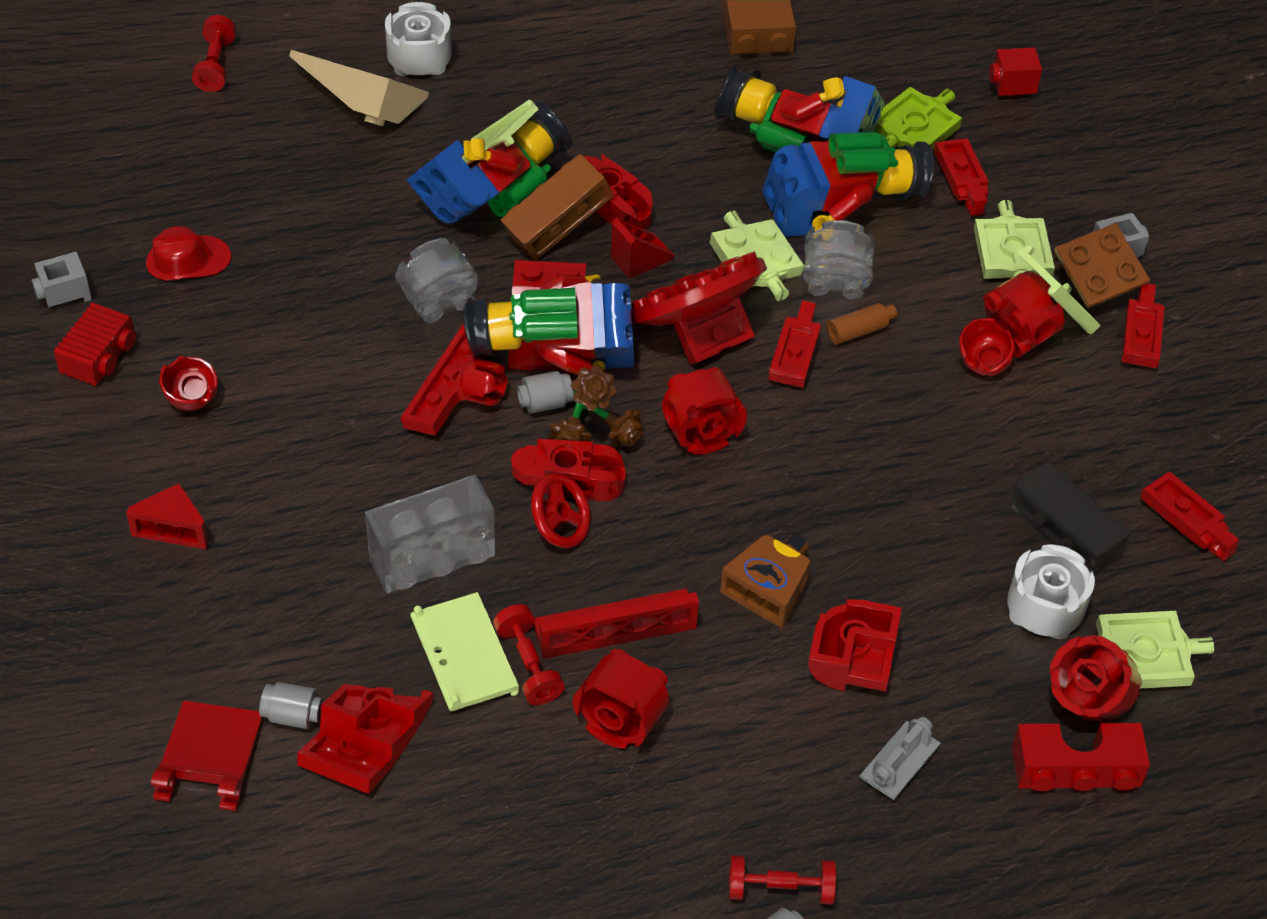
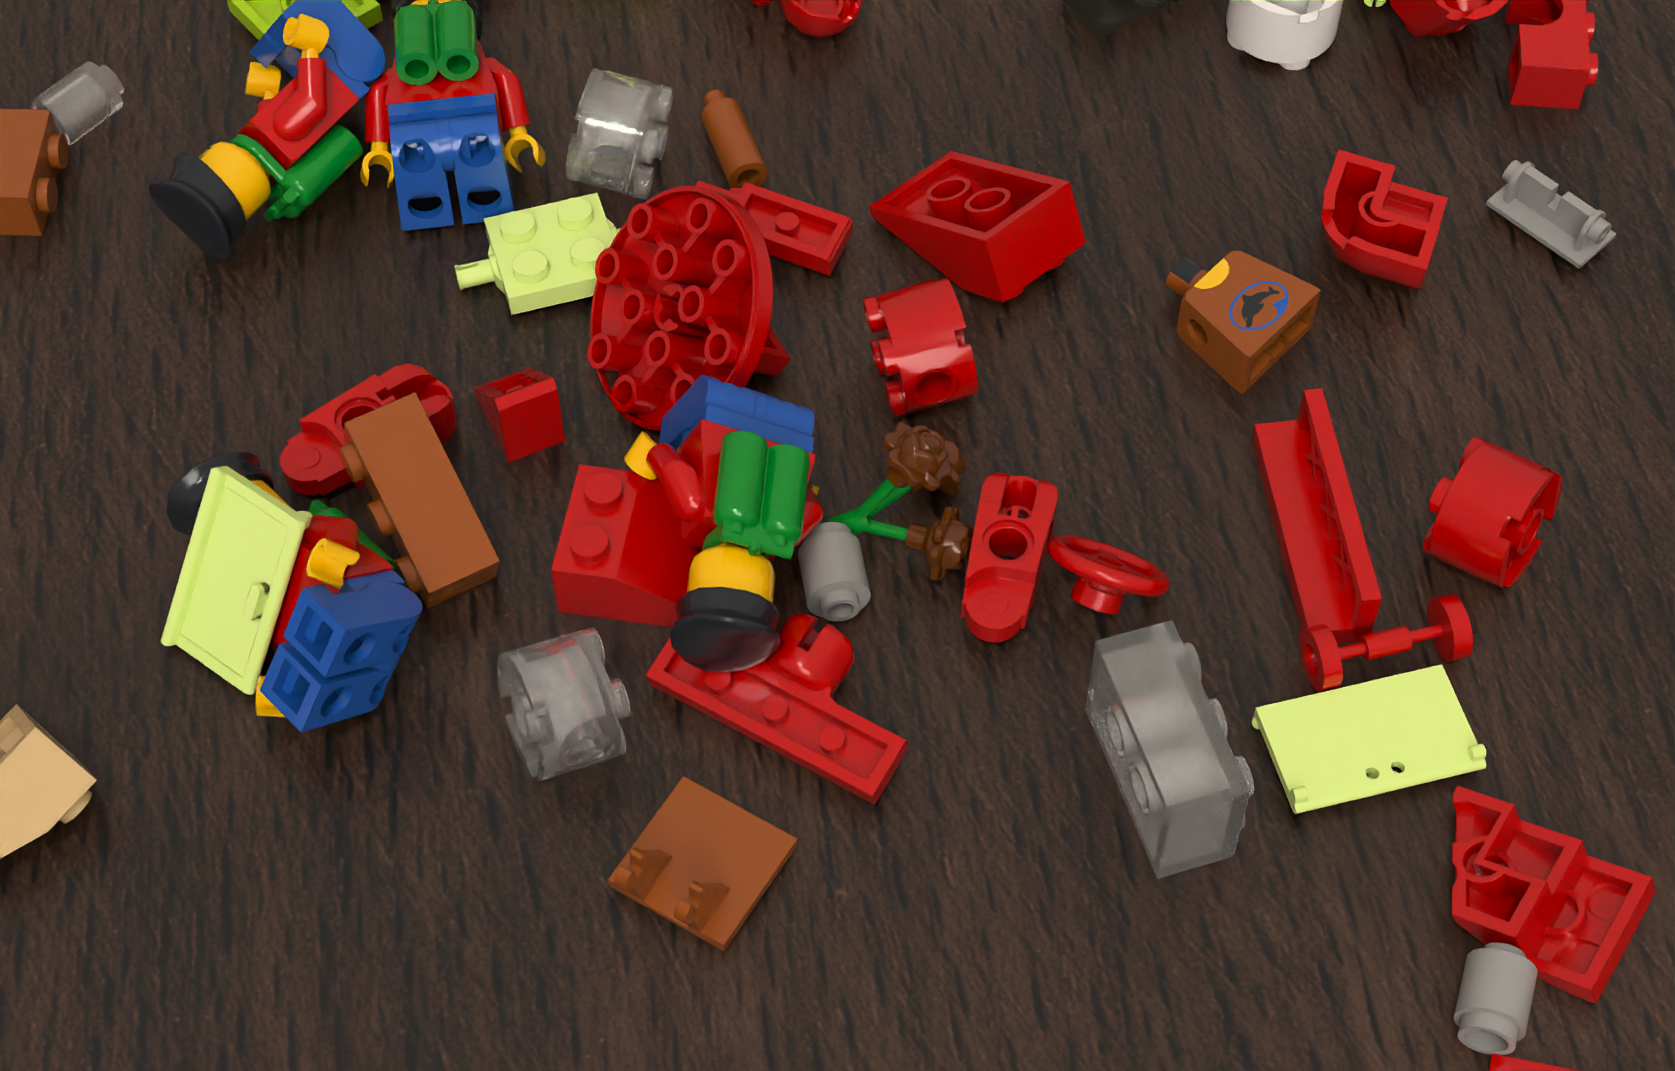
camera: 80 degrees left, 5 degrees up
(357, 353) = (703, 863): none -> dark orange plate
(815, 44) = (82, 100): none -> clear brick
(816, 443) = (984, 222): none -> red slope

